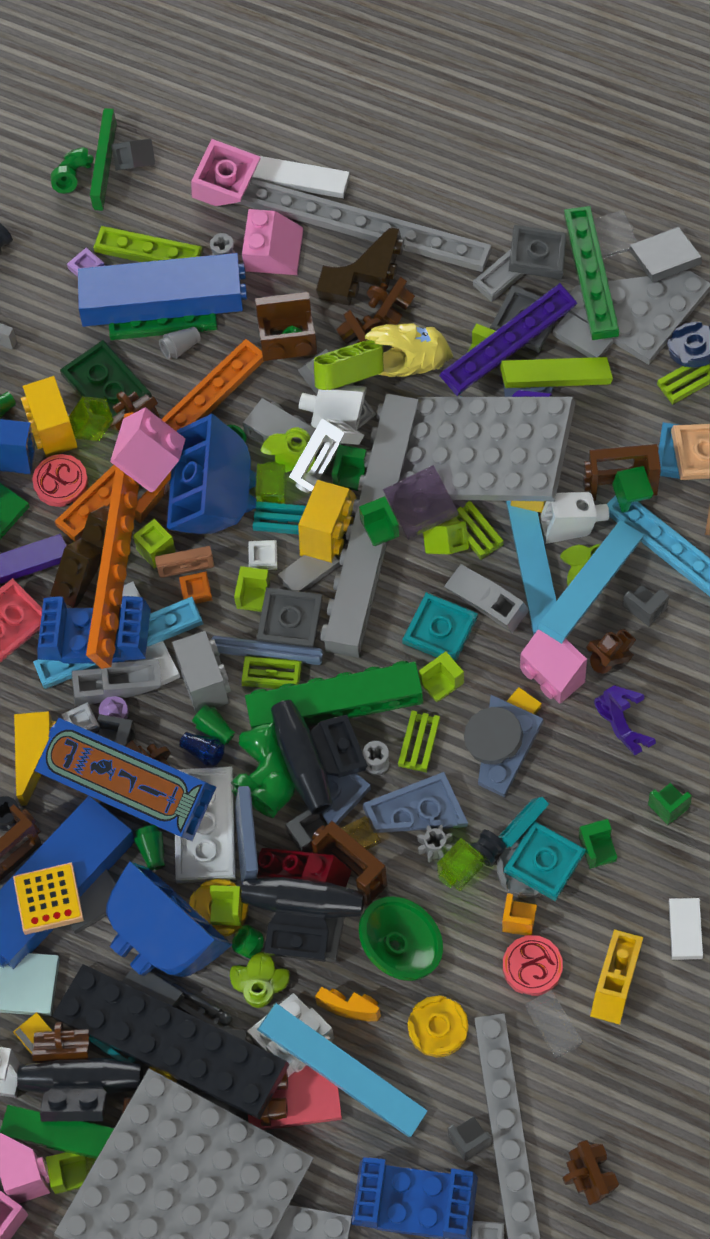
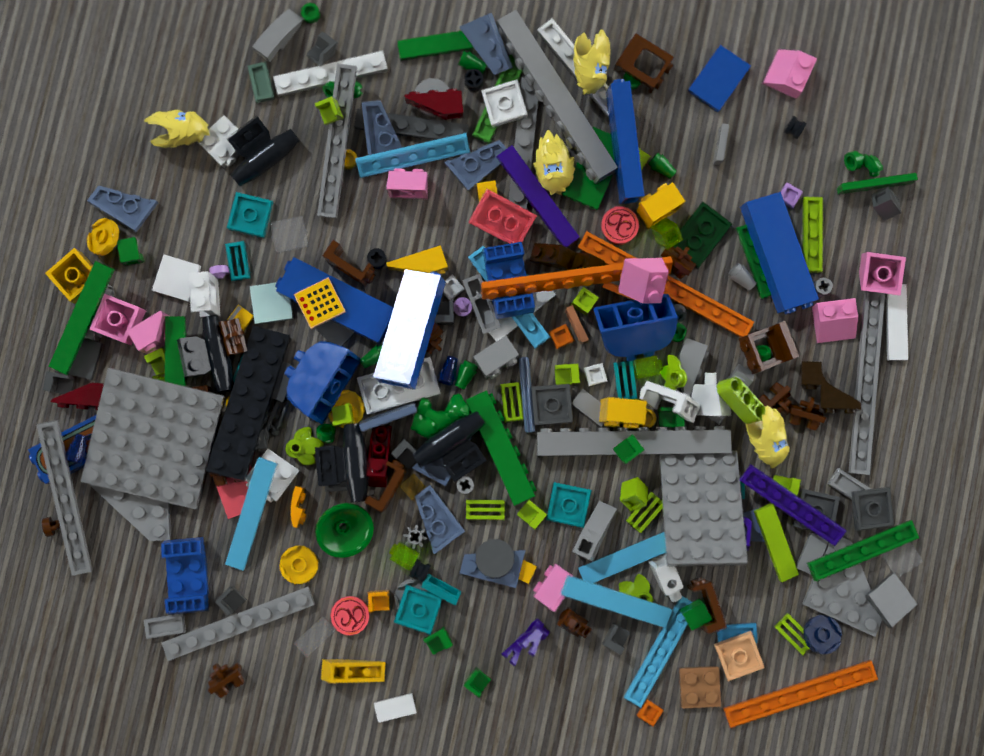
camera: 70 degrees right, 20 degrees up
(420, 502) = (650, 473): clear purple plate -> none

